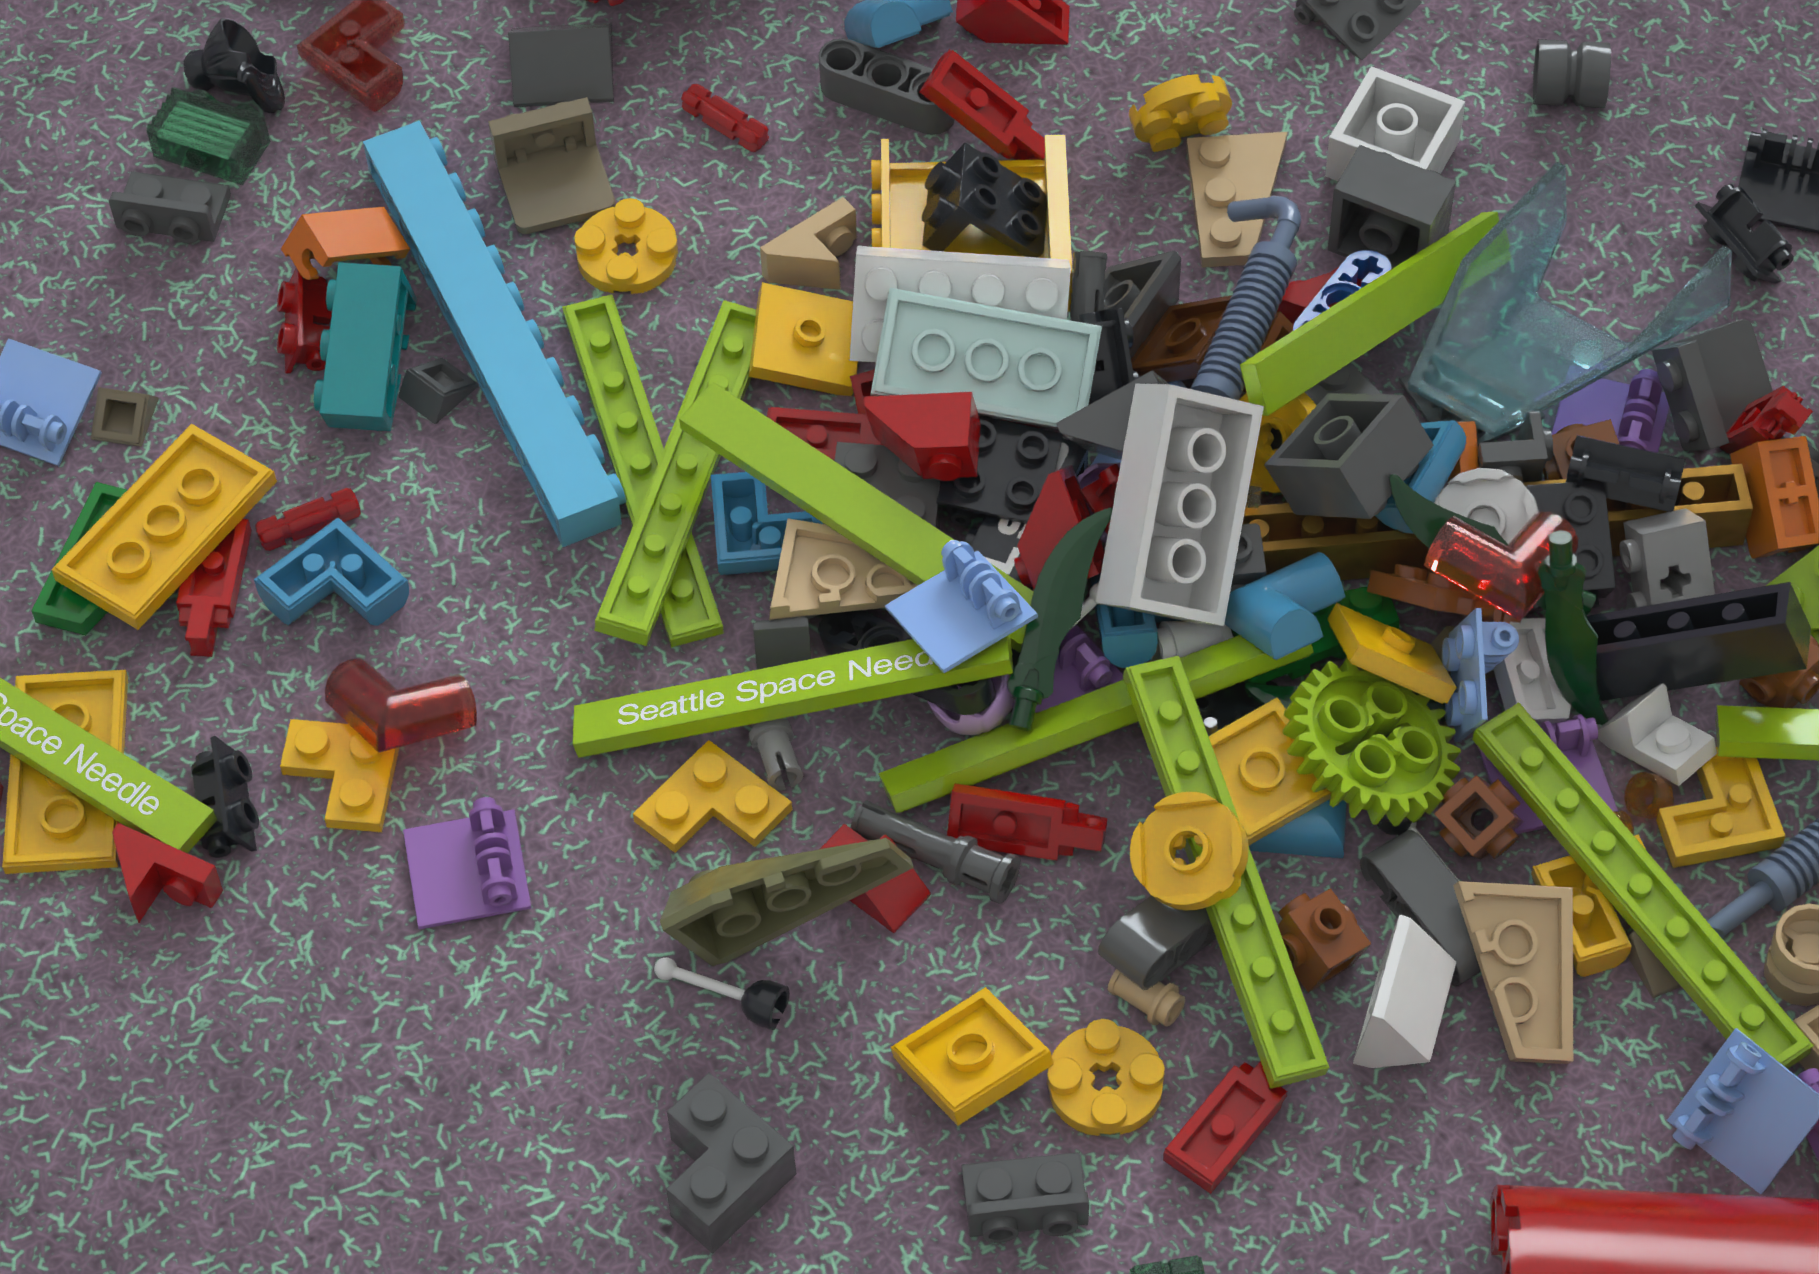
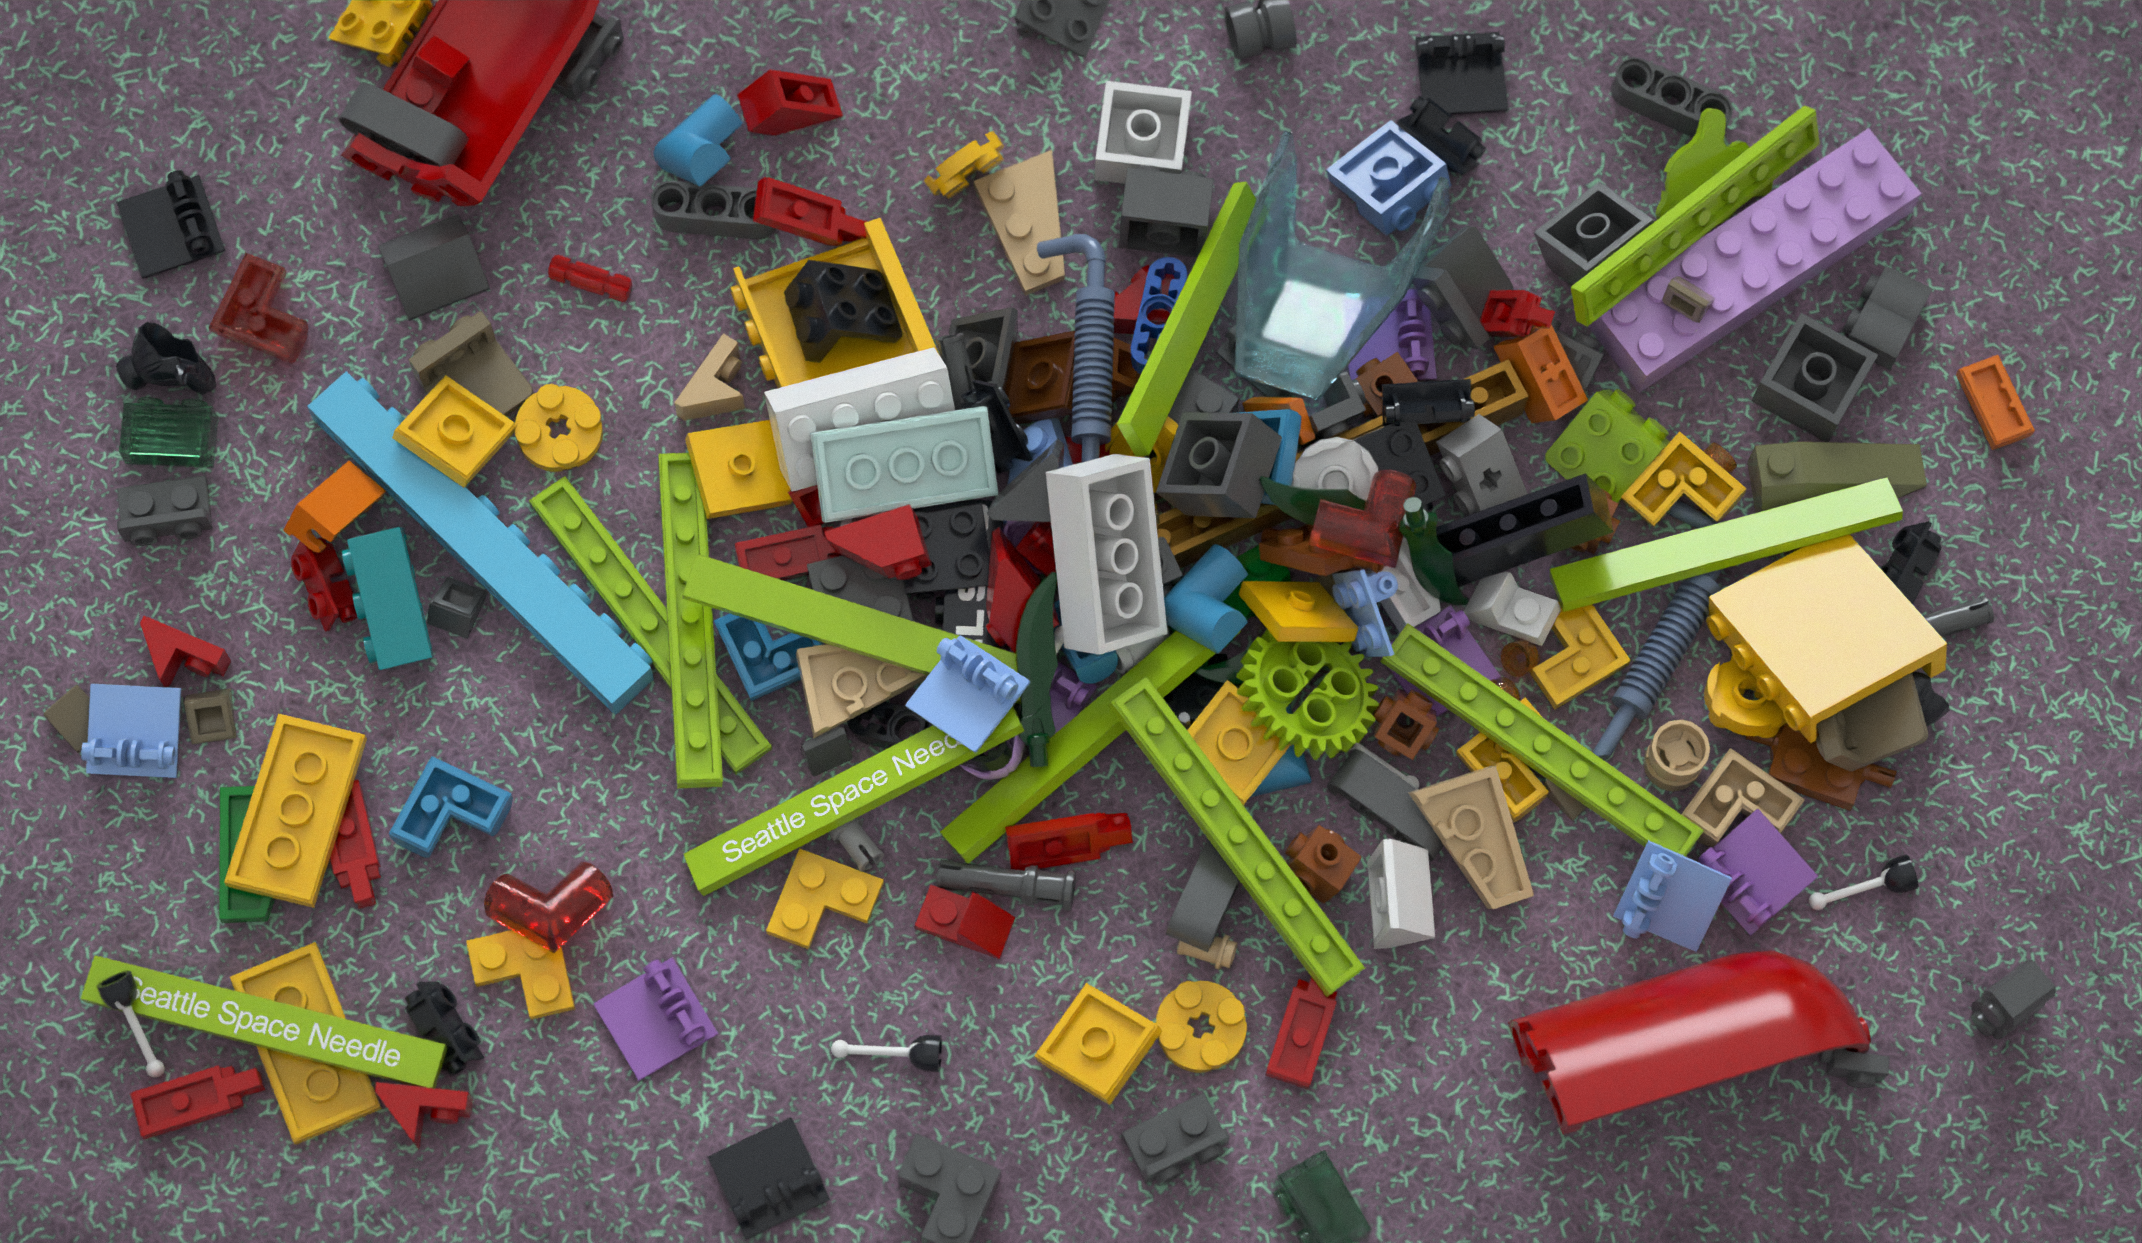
camera: 25 degrees left, 15 degrees up
(115, 335) = (171, 646): none -> red slope
(307, 519) = (402, 759): red axle -> none
(508, 209) = (454, 431): none -> yellow plate
(520, 1081) = (768, 1178): none -> black hinge
(755, 901) = (883, 986): olive wedge -> none
(1213, 874) = (1224, 816): yellow plate -> none
(1662, 255) = (1389, 177): none -> medium blue plate

